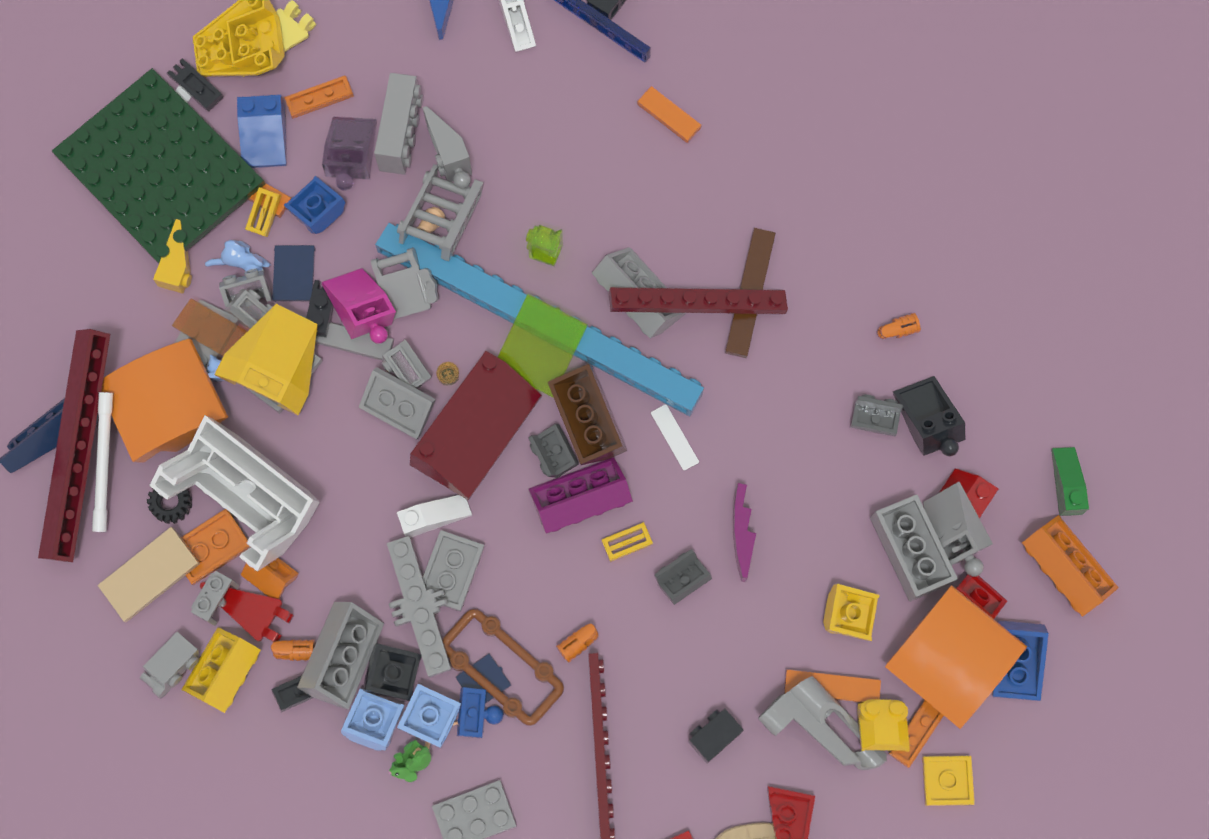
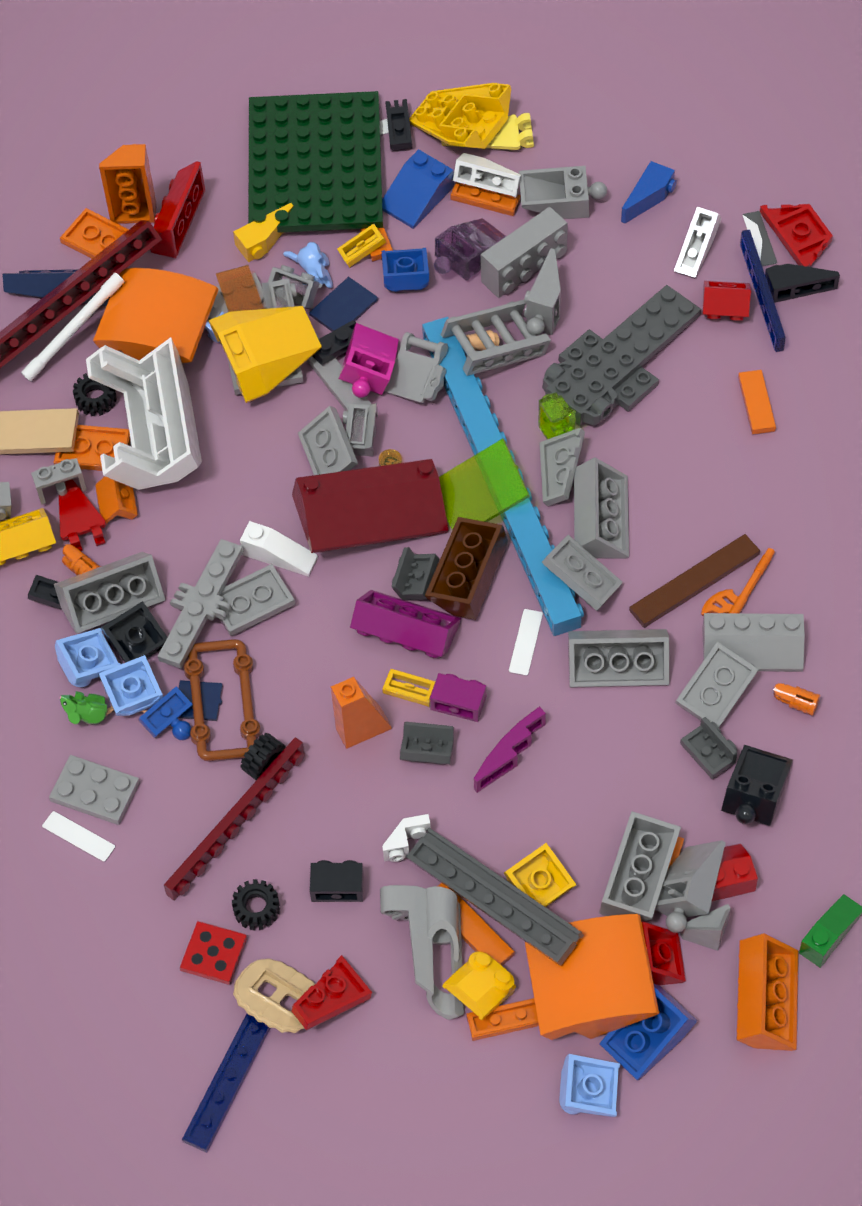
camera: 45 degrees right, 15 degrees down
(38, 307) = (128, 185): none -> orange slope
(40, 365) = (91, 233): none -> orange tile
(87, 292) = (178, 209): none -> red slope
(307, 78) = (486, 175): none -> white slope
(371, 50) = (561, 189): none -> light grey slope
(541, 173) = (609, 371): none -> dark grey piece
(577, 46) = (726, 299): none -> red slope
(578, 279) = (558, 465): none -> light grey wing
(578, 642) = (297, 727): orange hinge -> none
(579, 688) = (261, 755): none -> black tyre
(620, 600) = (356, 713): none -> orange slope
(670, 521) = (458, 697): none -> magenta brick
(674, 353) = (582, 572): none -> light grey plate
(674, 787) = (255, 890): none -> black tyre
(697, 300) = (639, 546): dark red plate -> none
(731, 668) = (396, 846): none -> white slope
(753, 397) = (618, 657): none -> light grey slope
(795, 284) = (738, 601): none -> orange piece
(834, 309) = (763, 640): none -> light grey slope
(840, 655) = (495, 896): none -> dark grey plate
(841, 364) = (716, 685): none -> light grey plate
(948, 780) = (495, 1076): yellow tile -> none
(999, 551) = (708, 928): none -> light grey slope
(1018, 735) = (589, 1086): none -> light blue slope

